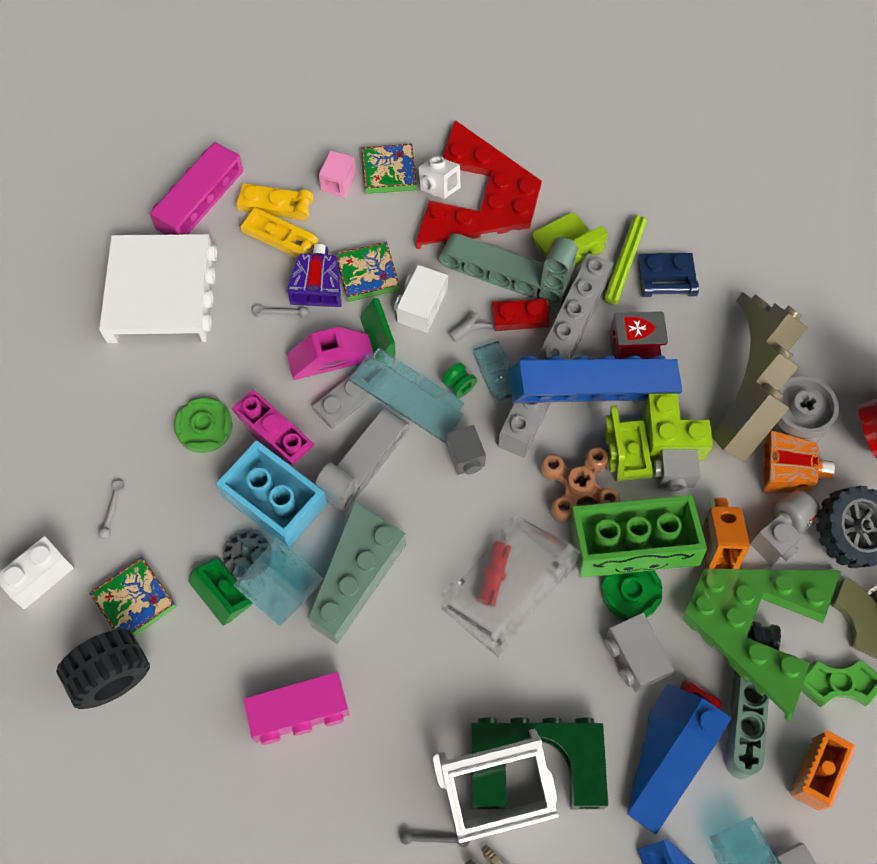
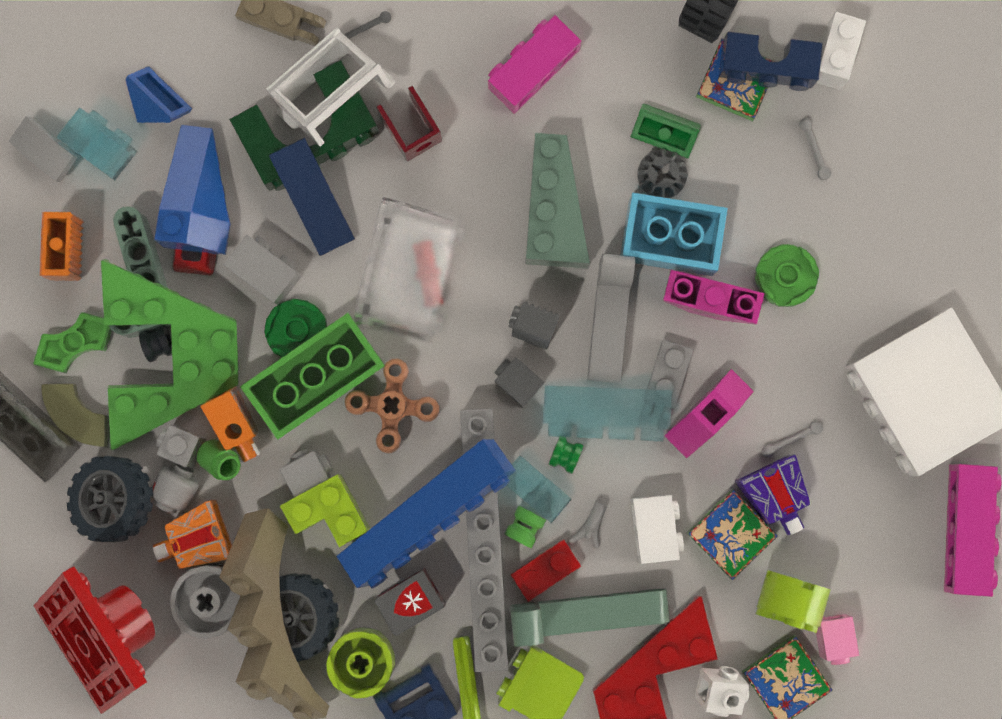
camera: 150 degrees right, 20 degrees up
(76, 574) = (744, 62): none -> dark blue arch
(275, 201) = (884, 567): yellow plate -> none
(278, 233) = (852, 526): yellow plate -> none
(278, 582) = (614, 160): clear light blue slope -> none
(353, 202) = (792, 601): none -> lime brick
(377, 328) = (678, 467): green slope -> none
(429, 479) = (533, 324): none -> dark grey brick
(441, 686) = (420, 145): none -> dark red piece
(523, 345) = (521, 533): none -> bright green wheel
(564, 693) = (311, 196): none -> dark blue piece
(627, 447) = (363, 468): lime bracket -> none
(697, 314) = (350, 677): none -> lime brick
(724, 383) = (323, 613): none -> black wheel
(752, 510) = (218, 461): none -> bright green brick

